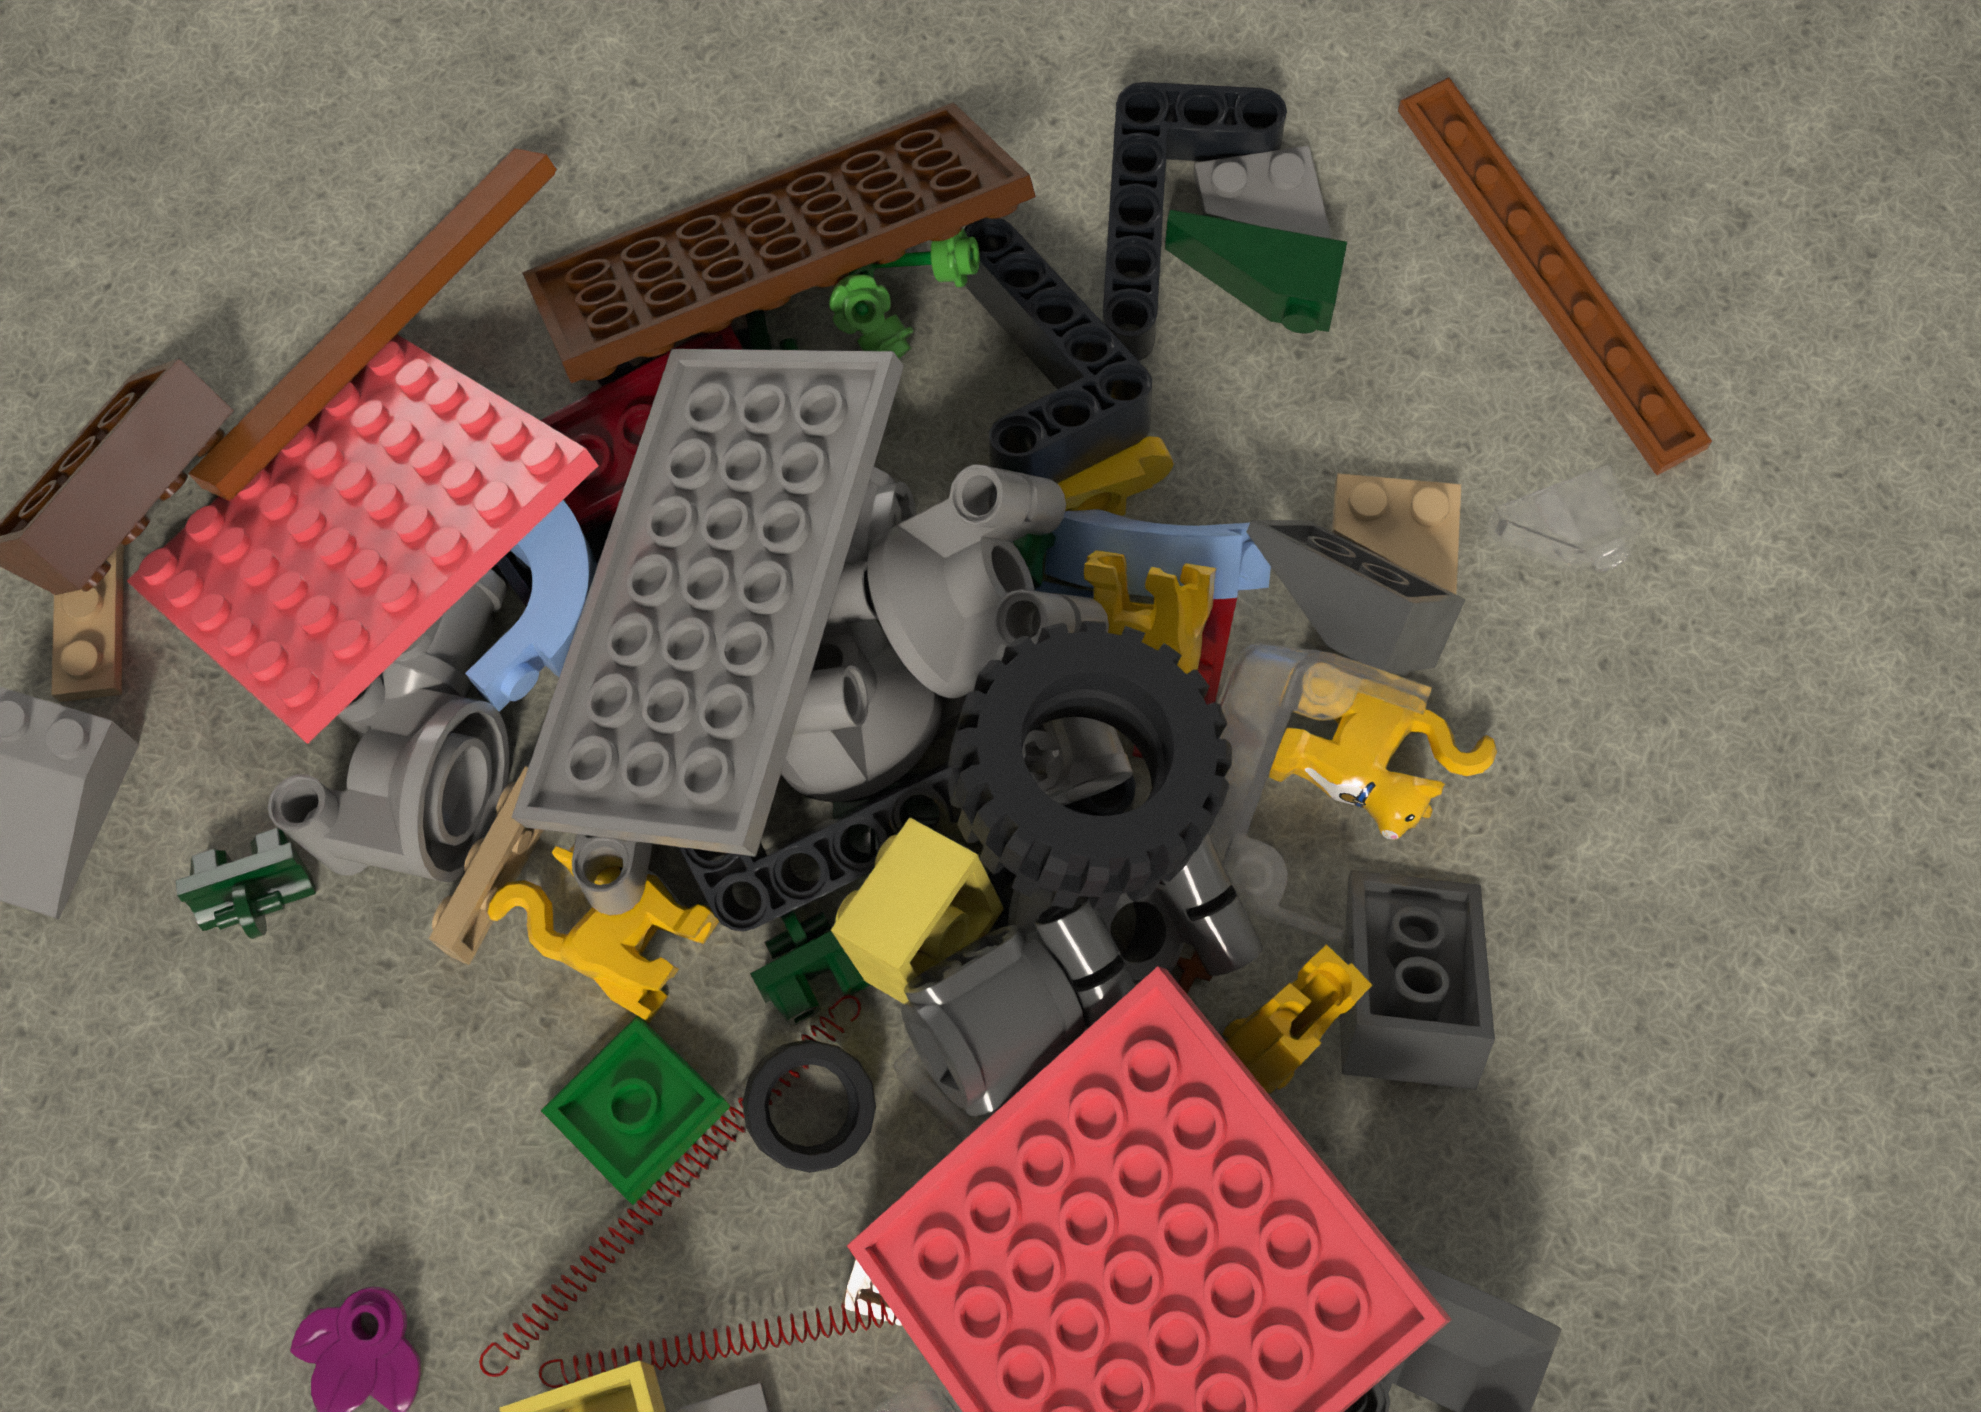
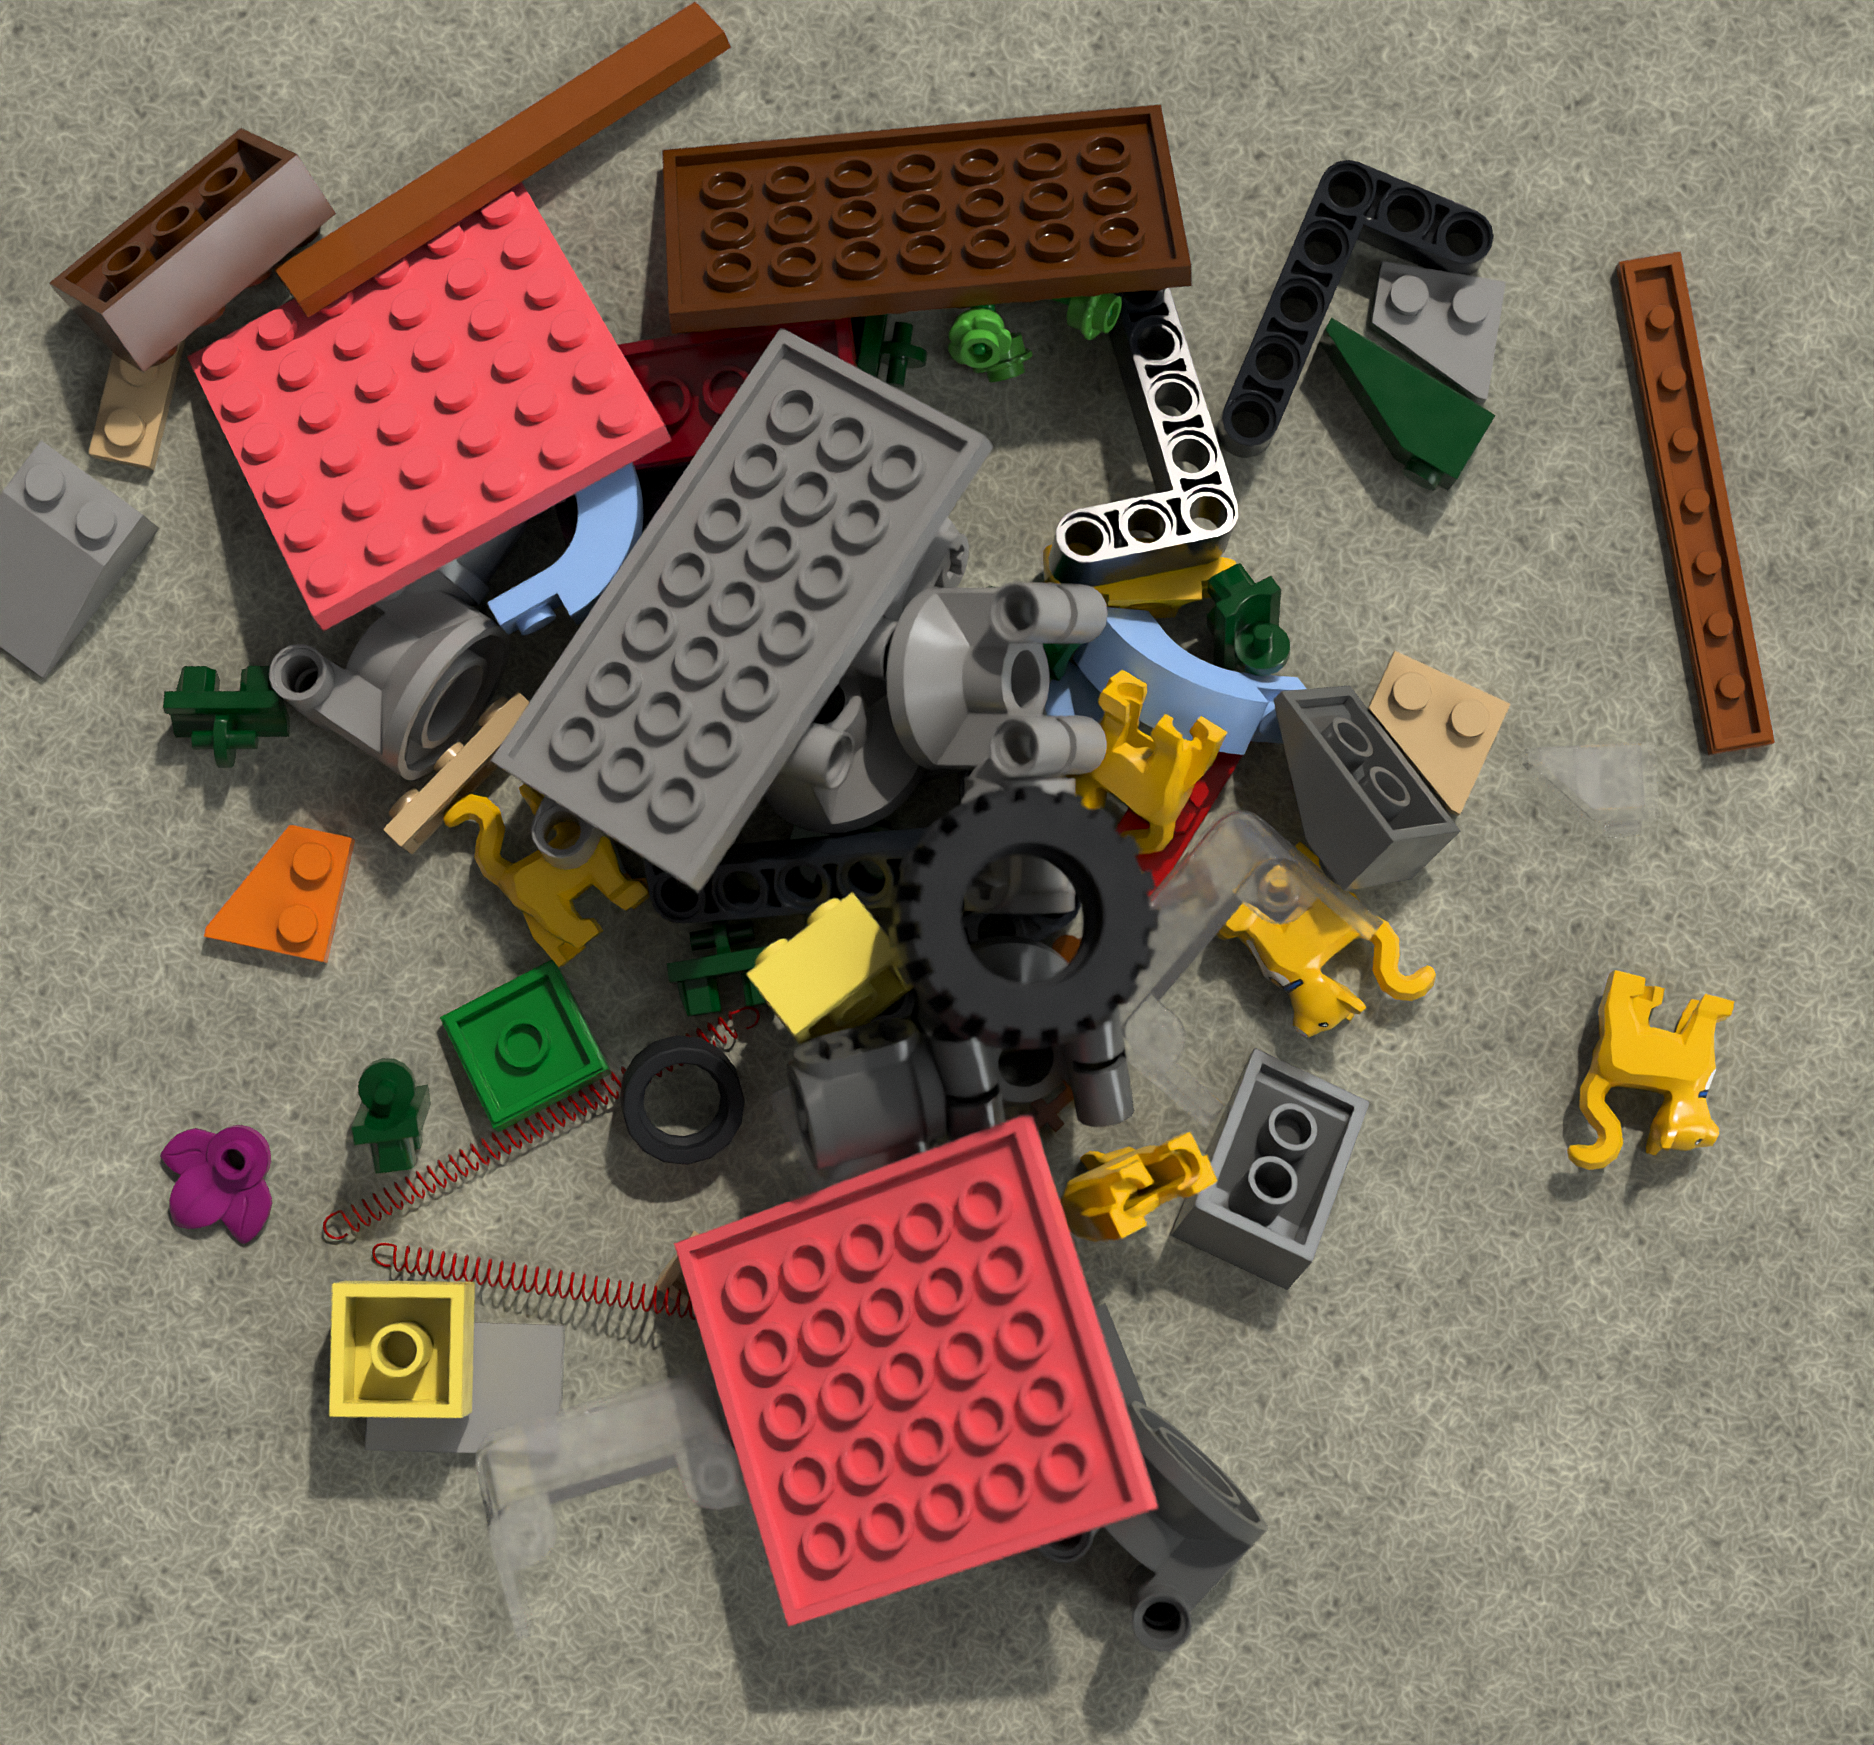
camera: 15 degrees right, 15 degrees up
(356, 1045) = (289, 896): none -> orange wing
(514, 1217) = (390, 1114): none -> dark green hips
(1193, 479) = (1246, 623): none -> dark green hips
(1734, 750) = (1650, 1060): none -> yellow animal

